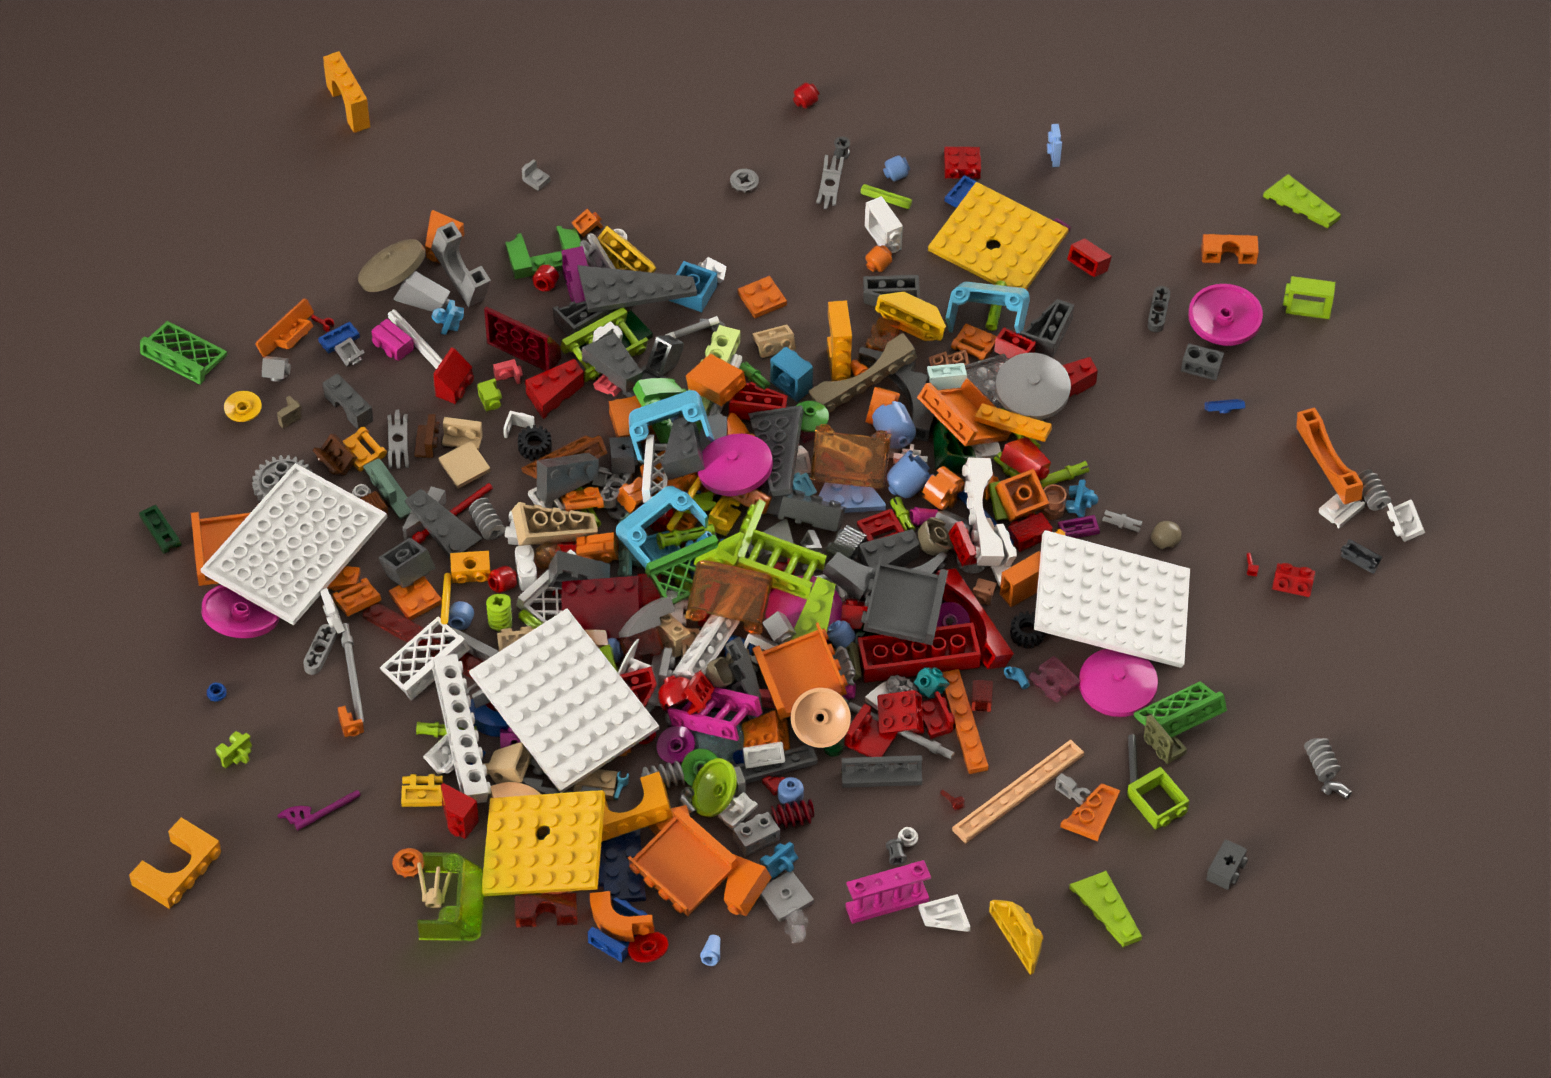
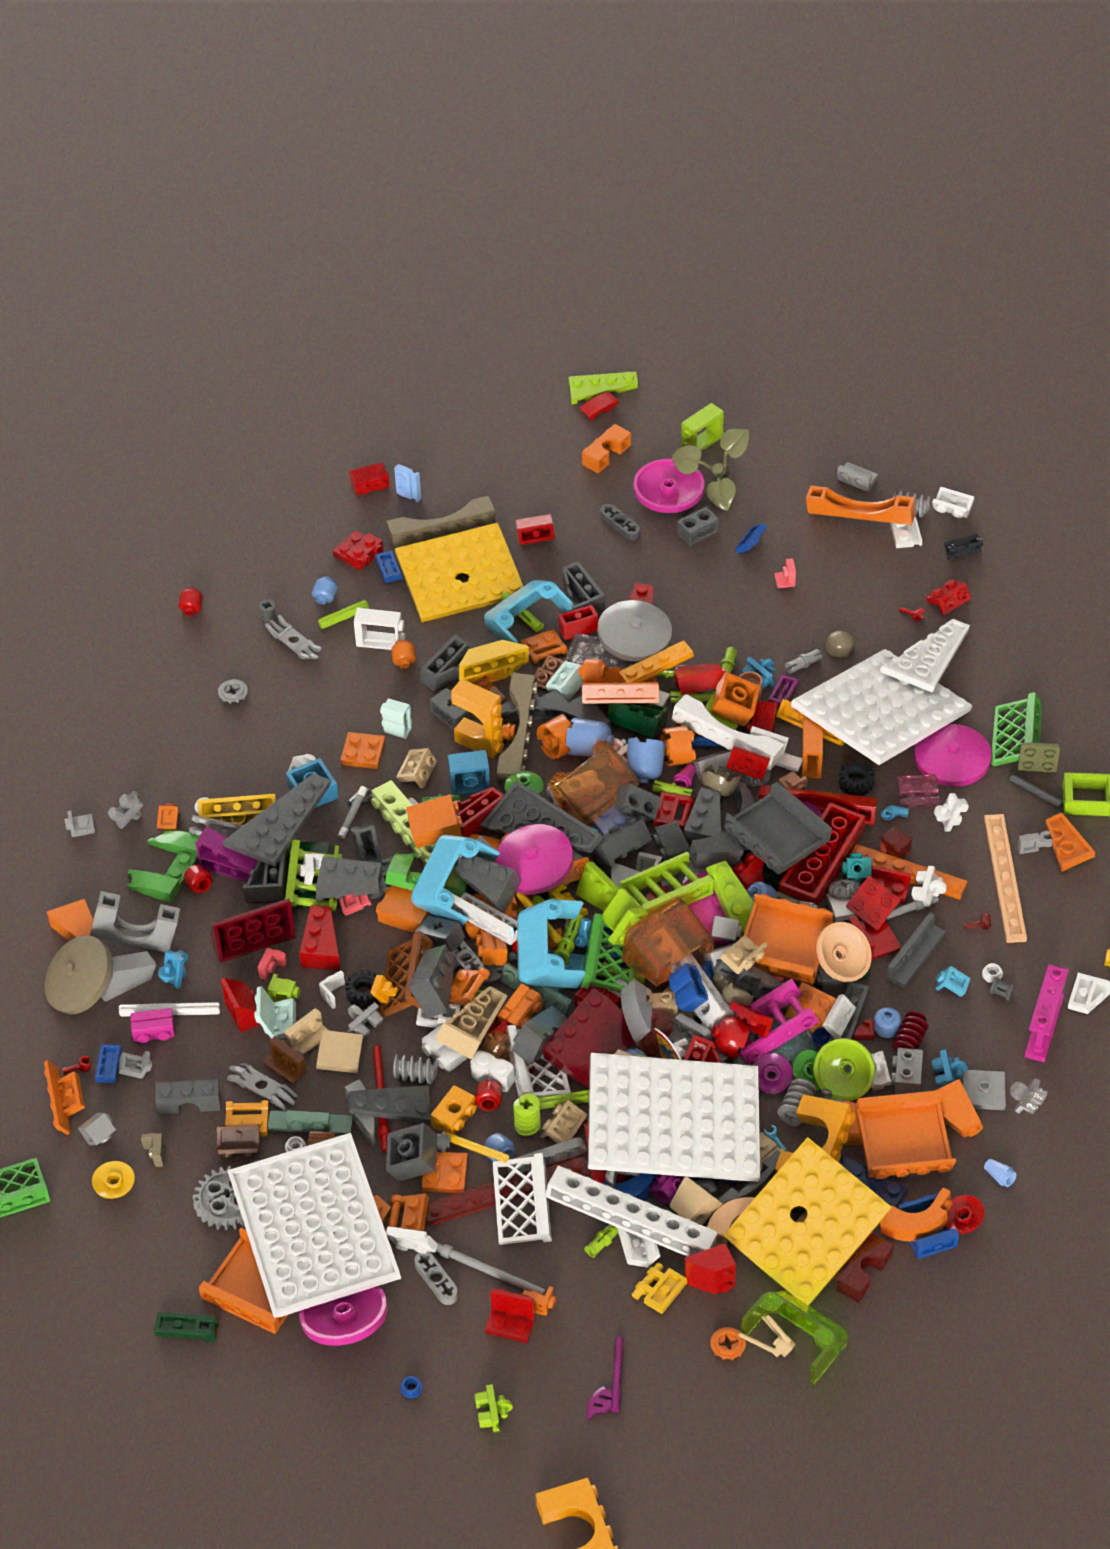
camera: 50 degrees left, 5 degrees down
(319, 714) = (511, 1315): none -> red bracket
(436, 576) = (443, 1141): none -> dark grey plate
(458, 400) = (274, 1016): none -> light aqua bracket
(513, 461) = (361, 1018): none -> light grey hips
(538, 451) = (383, 989): none -> light orange tile
(568, 193) = (132, 804): none -> light grey hips
(693, 635) = (688, 988): none -> blue brick
(749, 649) = (743, 955): none -> tan bracket
(804, 295) = (396, 718): none -> light aqua brick
(857, 319) = (442, 707): none -> dark grey brick
(862, 495) = (638, 800): none -> dark grey brick
(874, 814) = (952, 980): none -> medium azure bracket
(950, 740) = (931, 886): none -> white hips
(966, 386) = (593, 671): none -> orange head
(1040, 118) = (369, 478): none -> red brick
(1046, 713) = (950, 812): none -> white hips
(1069, 209) = (408, 530): none -> dark tan arch
(1201, 602) = (928, 659): none -> white wing
(1205, 453) = (788, 575): none -> coral bracket
(1279, 214) = (600, 403): none -> red slope
(1293, 323) = (724, 490): none -> olive plant
(1372, 436) = (856, 476): none -> light grey bracket

